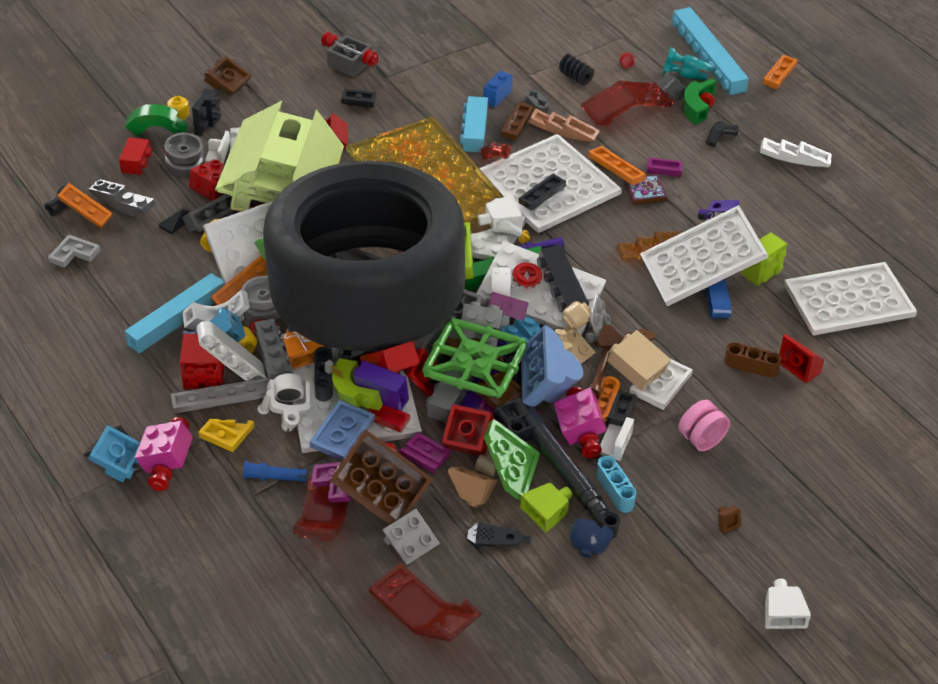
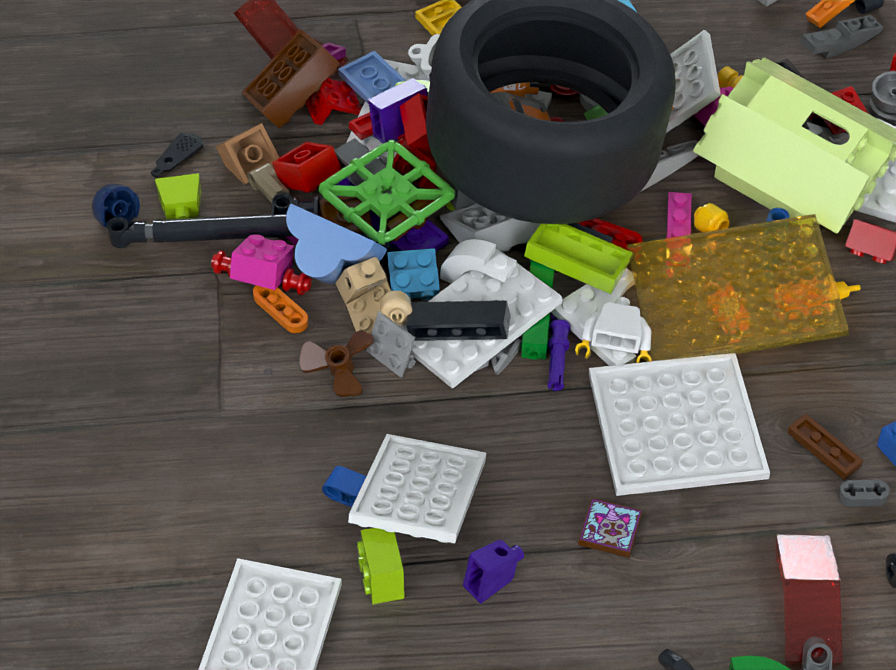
camera: 120 degrees right, 5 degrees up
(264, 471) = (372, 26): blue pin -> none
(410, 537) = (221, 92): light grey hinge -> none
(420, 607) = (135, 74): clear red windscreen -> none
(425, 452) = (317, 133): magenta plate -> none
(475, 119) = (836, 395): medium azure brick -> none
(482, 316) = (441, 226): light grey plate -> none
(496, 150) = (759, 383): clear red connector -> none
(511, 306) = (447, 252): magenta plate -> none
(512, 458) = (248, 185): bright green plate -> none
(534, 272) = (489, 285): red gear -> none
(542, 192) = (646, 391): black plate -> none
(569, 128) = (790, 495): nougat slope -> none
(595, 386) = (289, 290): reddish brown piece -> none
(616, 439) = (221, 294): white panel -> none
(616, 484) = (163, 261): medium azure beam -> none
(617, 165) = (666, 506): orange plate -> none
(621, 408) = (257, 315): black plate -> none
(632, 251) = (493, 478): clear orange slope -> none
(638, 360) = (297, 338): tan brick -> none
(664, 167) = (646, 576): magenta tile -> none
(665, 386) = (270, 369): white plate -> none
(704, 425) = (168, 355): bright pink wheel -> none
(729, 518) = (53, 329): reddish brown tile -> none
(752, 359) = (238, 469): reddish brown beam -> none
(800, 359) = (199, 507): red slope -> none

